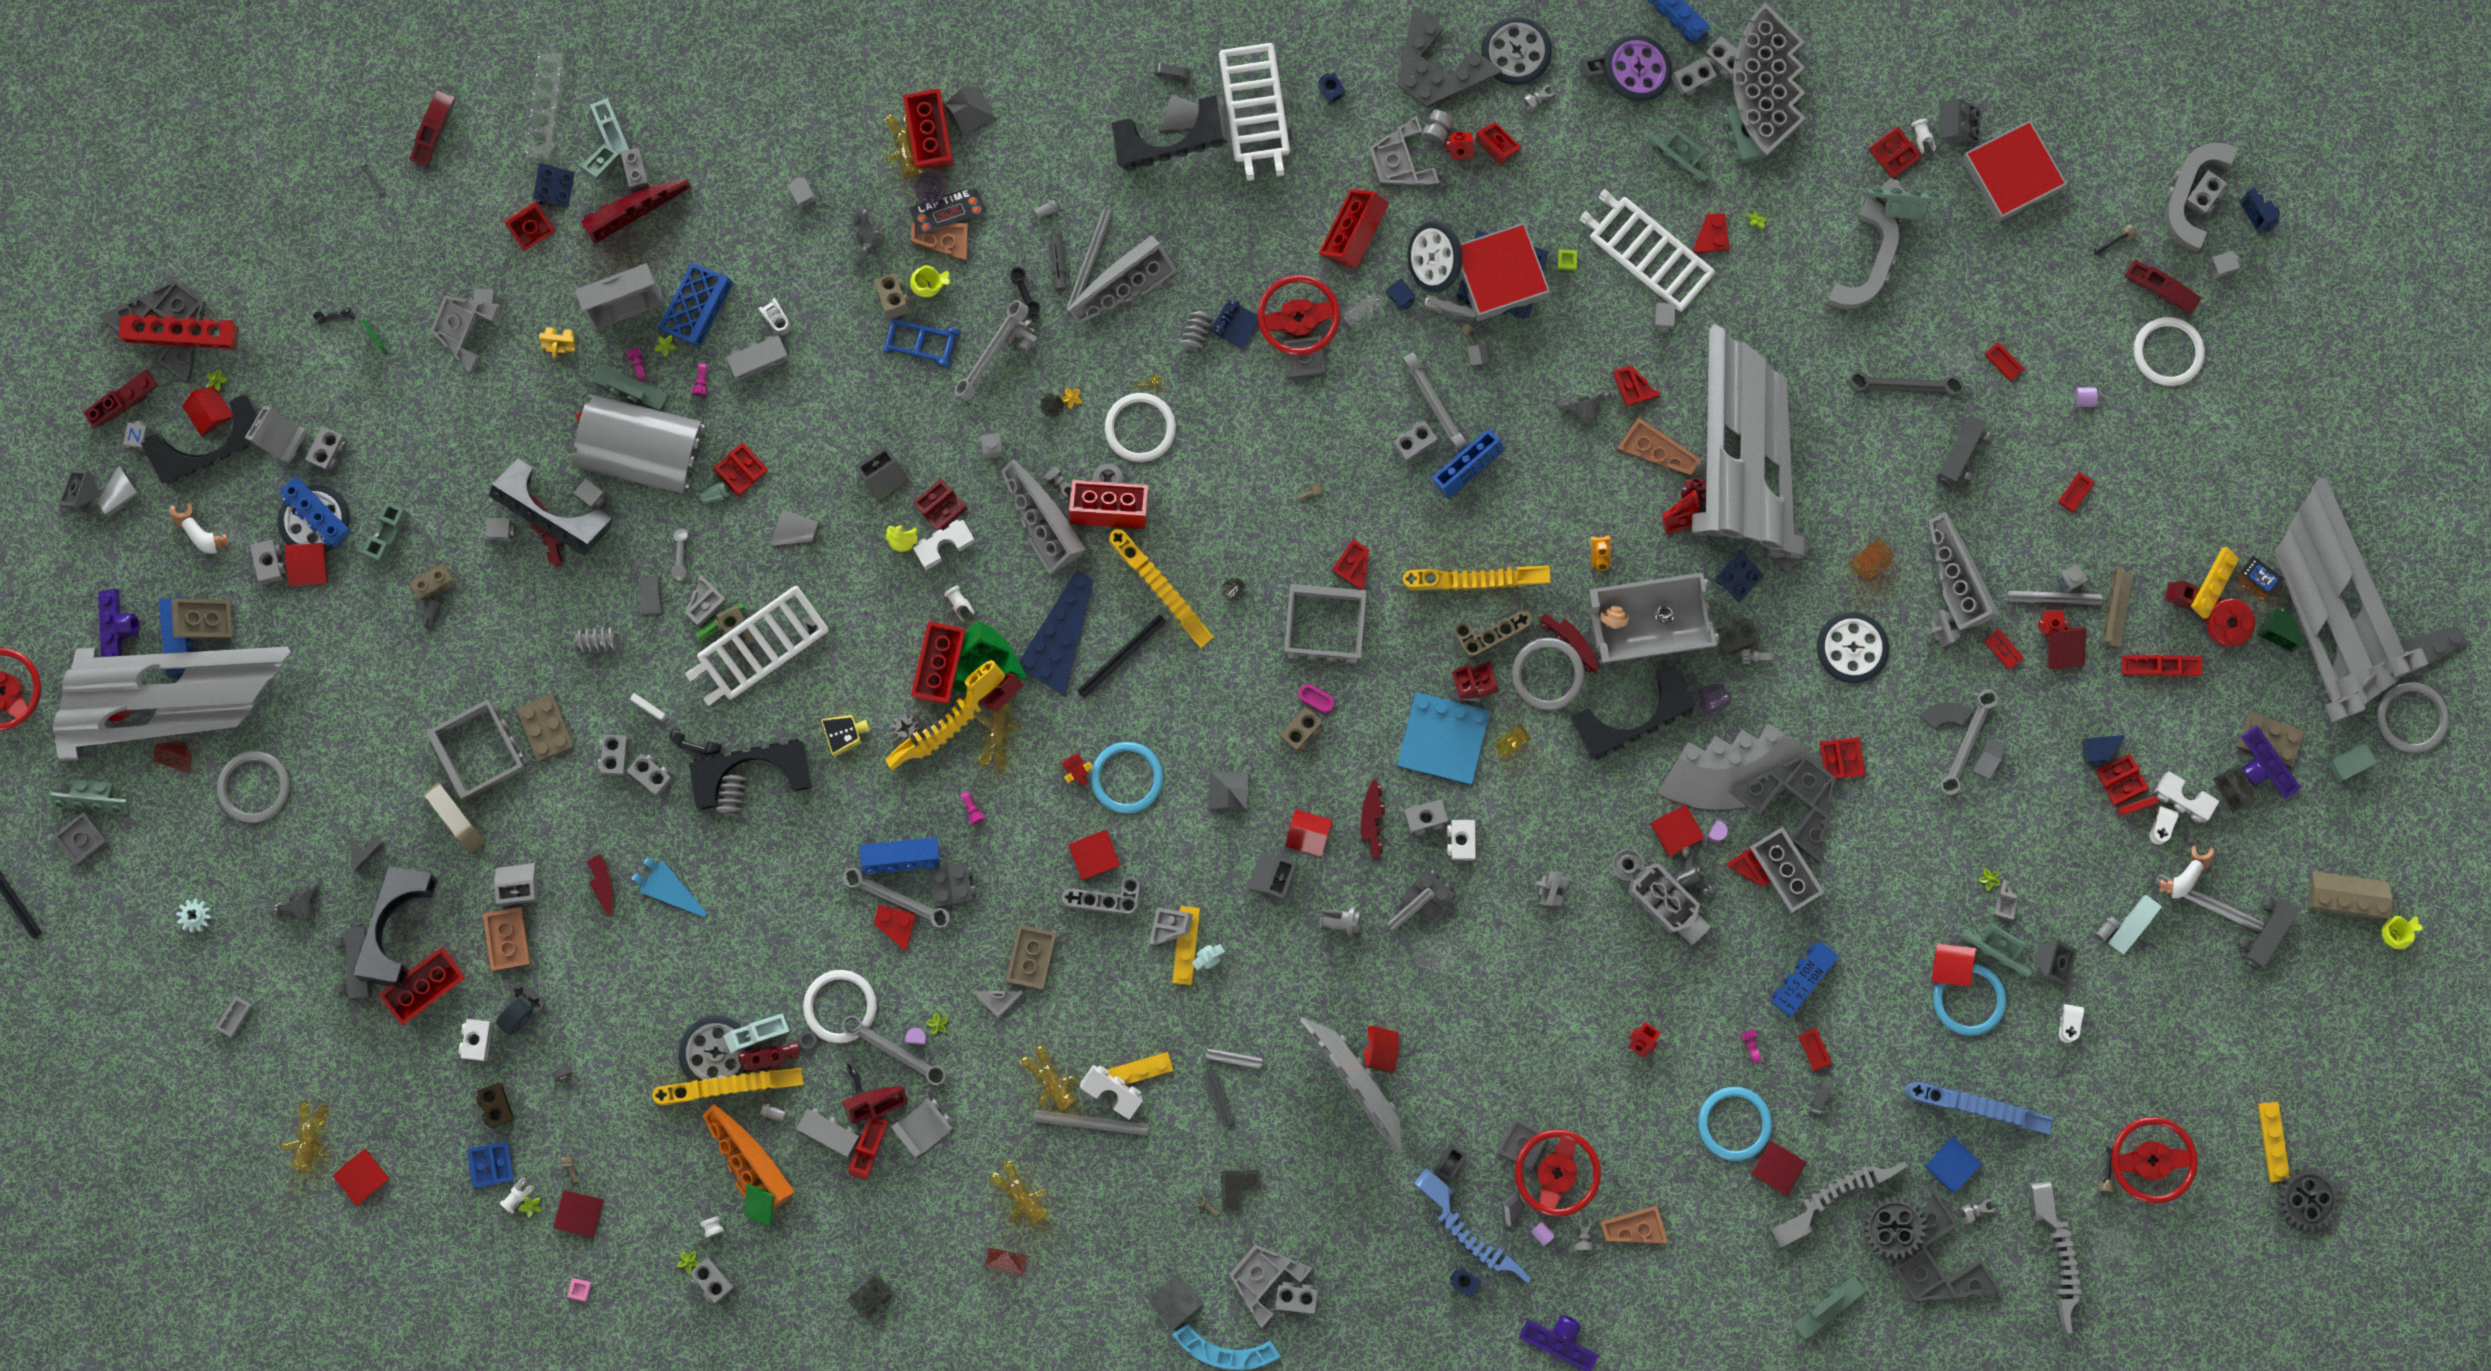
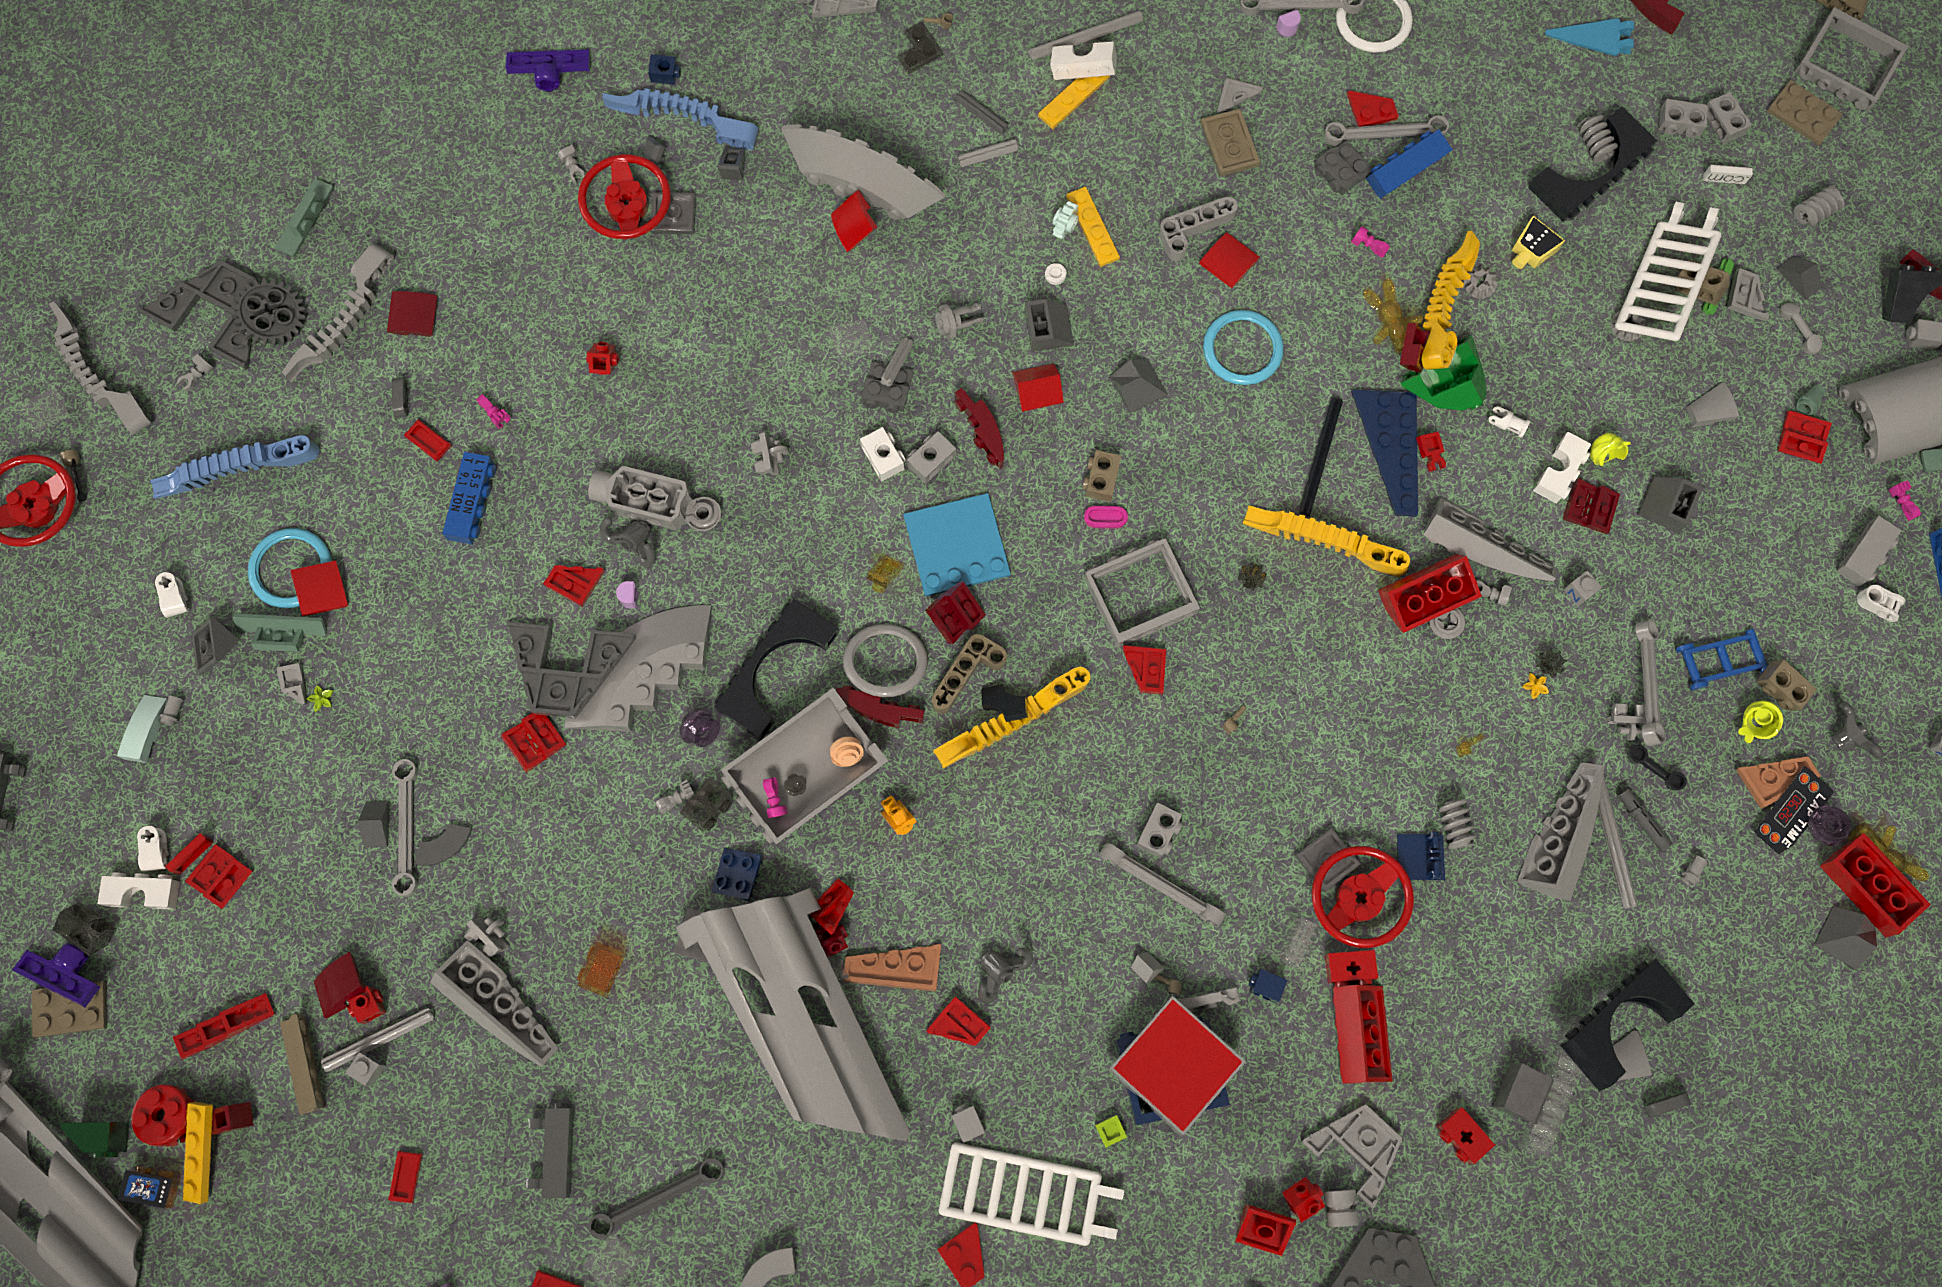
camera: 150 degrees right, 5 degrees down
(678, 739) = (1677, 160): black bar -> none
(937, 1023) = (1277, 48): lime plant -> none
(938, 663) = (1494, 348): red slope -> none
(1033, 615) = (1431, 447): none -> red plate
(1048, 1076) = (1148, 50): clear yellow animal -> none
(1076, 769) = (1298, 326): red piece -> none
(1140, 457) = (1423, 718): white wedge -> none
(1169, 925) = (1119, 232): light grey wing -> none
(1231, 105) = (1499, 1063): white bar -> none
(1239, 920) = (1055, 273): none -> white tile
(1323, 136) = (1461, 1122): none -> red brick
(1331, 95) = (1475, 1187): dark blue brick -> none
(1339, 283) = (1363, 961): none -> red brick
(1416, 249) = (1261, 1049): wedge -> none
(1468, 463) = (1089, 835): blue brick -> none
(1479, 600) = (1010, 706): none -> black tile
(1542, 1233) = (611, 146): lavender brick -> none
(1638, 1226) = (524, 197): nougat wing -> none
(1677, 830) = (670, 576): red slope -> none
(1689, 604) = (771, 788): none -> dark pink piece
(1713, 1146) = (451, 311): medium azure wedge -> none
(1787, 870) = (536, 590): light grey slope -> none
(1839, 669) = (602, 882): wedge -> none
(1953, 1164) = (237, 402): blue slope -> none
(2003, 649) = (411, 950): red tile -> none
(2100, 748) = (254, 896): dark blue slope -> none
(2184, 883) = (102, 792): piece -> none
(2219, 907) = (70, 794): light grey axle -> none

